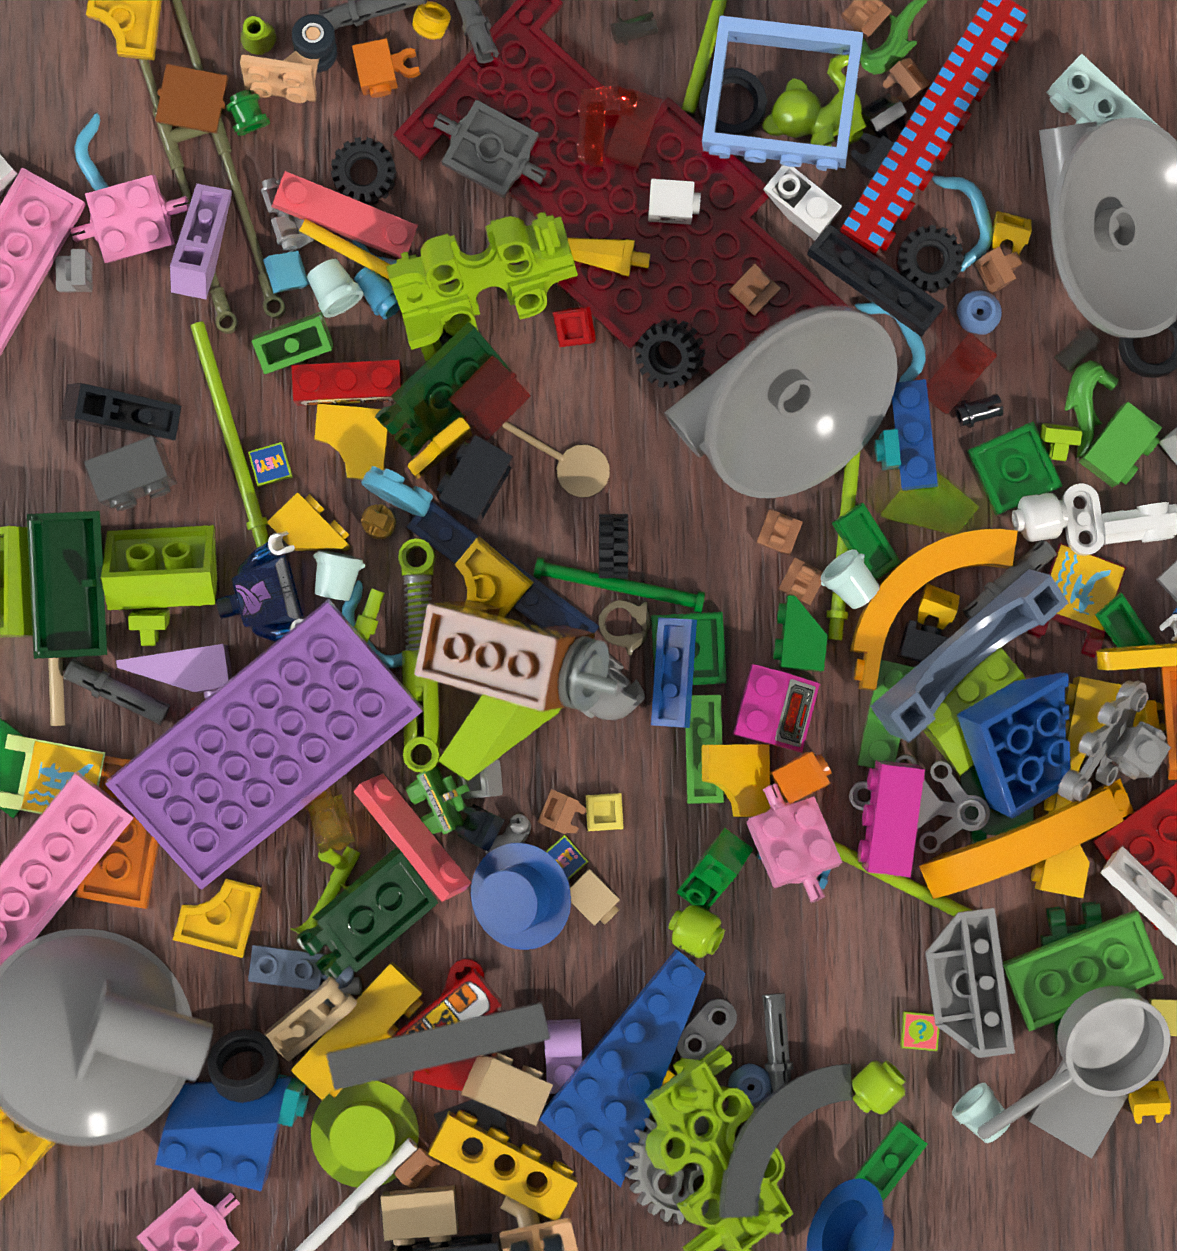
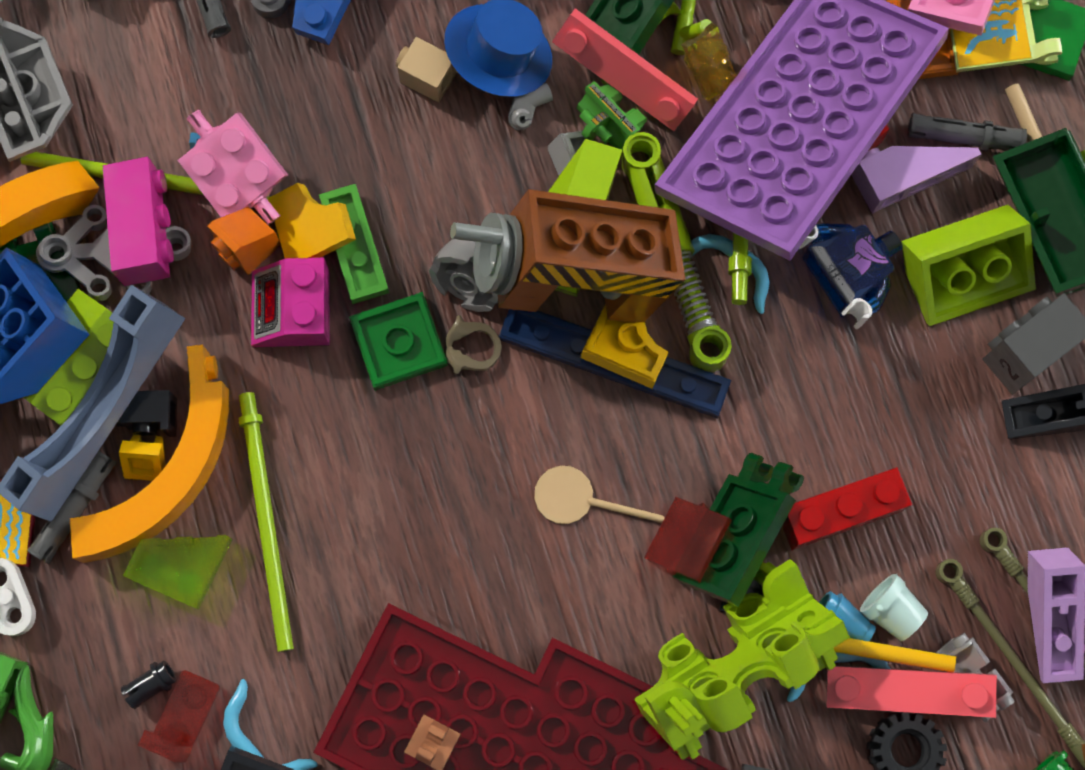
camera: 165 degrees right, 10 degrees down
(149, 623) = (960, 203): lime tile -> none
(257, 522) = (887, 340): lime bar -> none
(270, 464) = (894, 403): tile -> none
(286, 271) = (951, 611): medium azure tile -> none
(292, 342) = (918, 532): bright green brick -> none
(306, 526) = (833, 347): yellow slope -> none
(336, 574) = (788, 308): light aqua piece -> none
(354, 435) = (815, 455): yellow tile -> none
(378, 521) = (762, 372): pearl gold hinge -> none
(390, 487) = (747, 403): medium azure tile -> none
(440, 447) = (723, 467): yellow tile -> none
(476, 479) = (674, 441): black brick -> none
(480, 827) = (560, 103): black tile -> none
(559, 812) = (484, 140): nougat tile -> none
(567, 856) = (466, 101): blue tile -> none
(574, 326) = (620, 644): red tile -> none
(604, 812) = (439, 157): light yellow tile -> none
(608, 254) = (608, 734): yellow bar -> none
(613, 545) = (507, 416): black tyre -> none
(619, 585) = (489, 384): green bar -> none
(653, 361) = (503, 661): black tyre -> none
(673, 672) = (405, 305): blue plate -> none
(696, 931) = (312, 65): lime head -> none
(715, 870) = (308, 128): green slope -> none
(779, 532) = (335, 489): nougat tile -> none
(792, 402) = (352, 609): light grey dish -> none
(801, 581) = (297, 444): nougat tile -> none
(802, 638) = (279, 380): green slope -> none
(850, 579) = (243, 454): light aqua piece -> none
(863, 534) = (238, 503): green tile -> none
(876, 741) = (172, 368): bright green plate -> none
(888, 450) = (229, 611): teal bracket -> none
(915, 435) = (213, 633): blue plate -> none
(919, 1031) = (64, 37): tile -> none
(1014, 467) = (95, 633): green tile -> none
(1040, 517) = (53, 585): white head -> none
(1060, 438) = (50, 678): lime tile -> none

